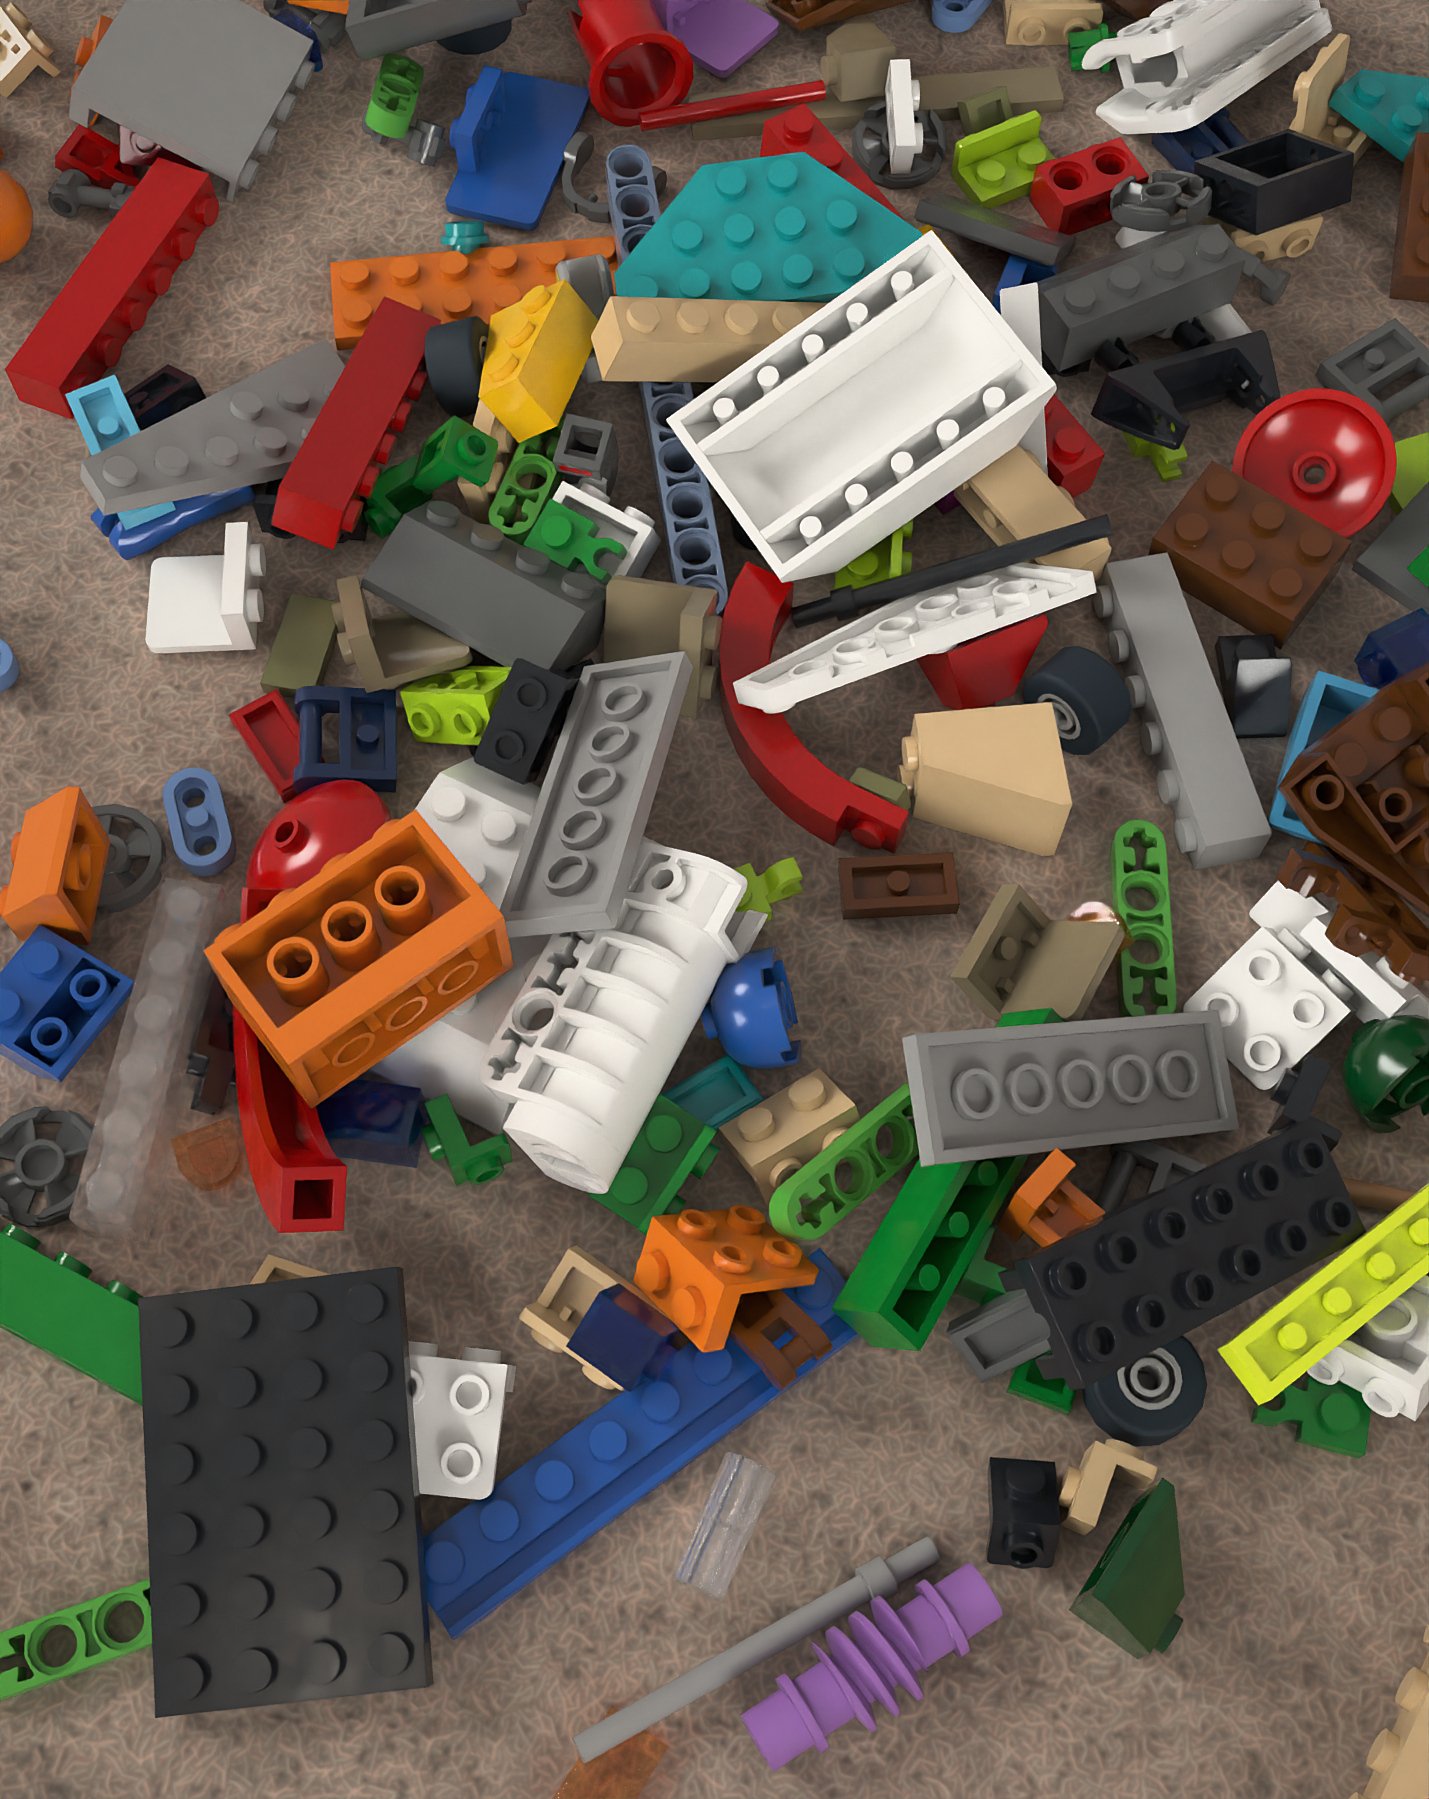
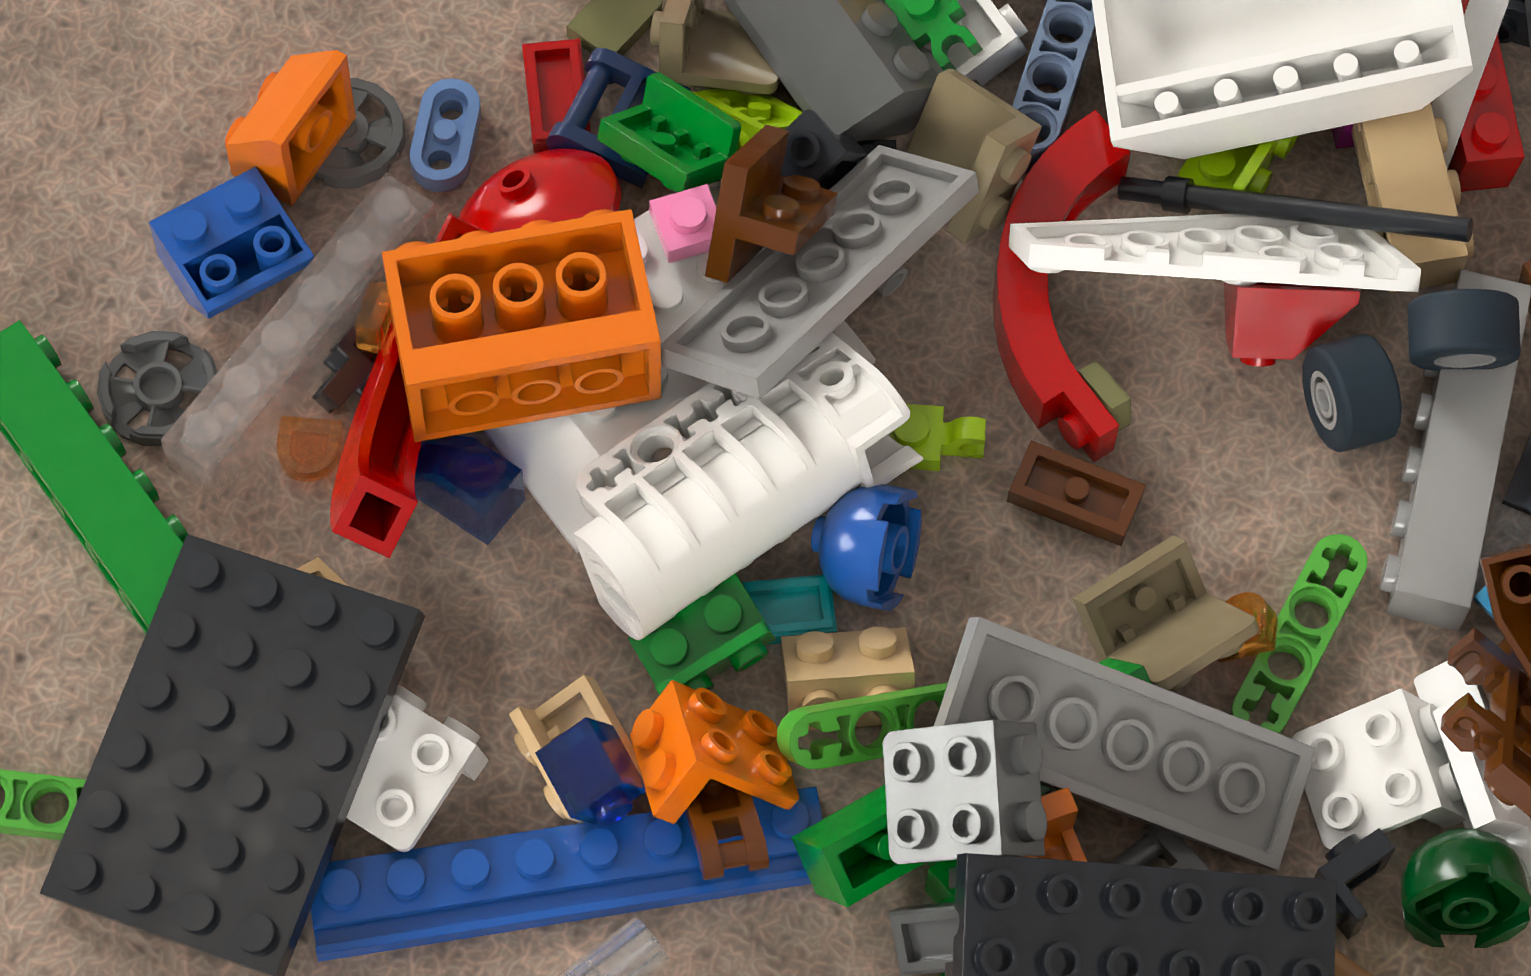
camera: 25 degrees right, 0 degrees up
(216, 1011) = (373, 318): none -> clear orange tile
(408, 733) = (673, 135): none -> green bracket
(447, 1139) = (538, 562): green bracket -> none
(459, 802) = (684, 222): none -> bright pink plate
(526, 758) = (763, 207): none -> reddish brown bracket
(978, 1201) = (964, 791): none -> bracket
(990, 774) = (1215, 422): tan slope -> none
(1147, 607) = (1464, 329): none -> black wheel

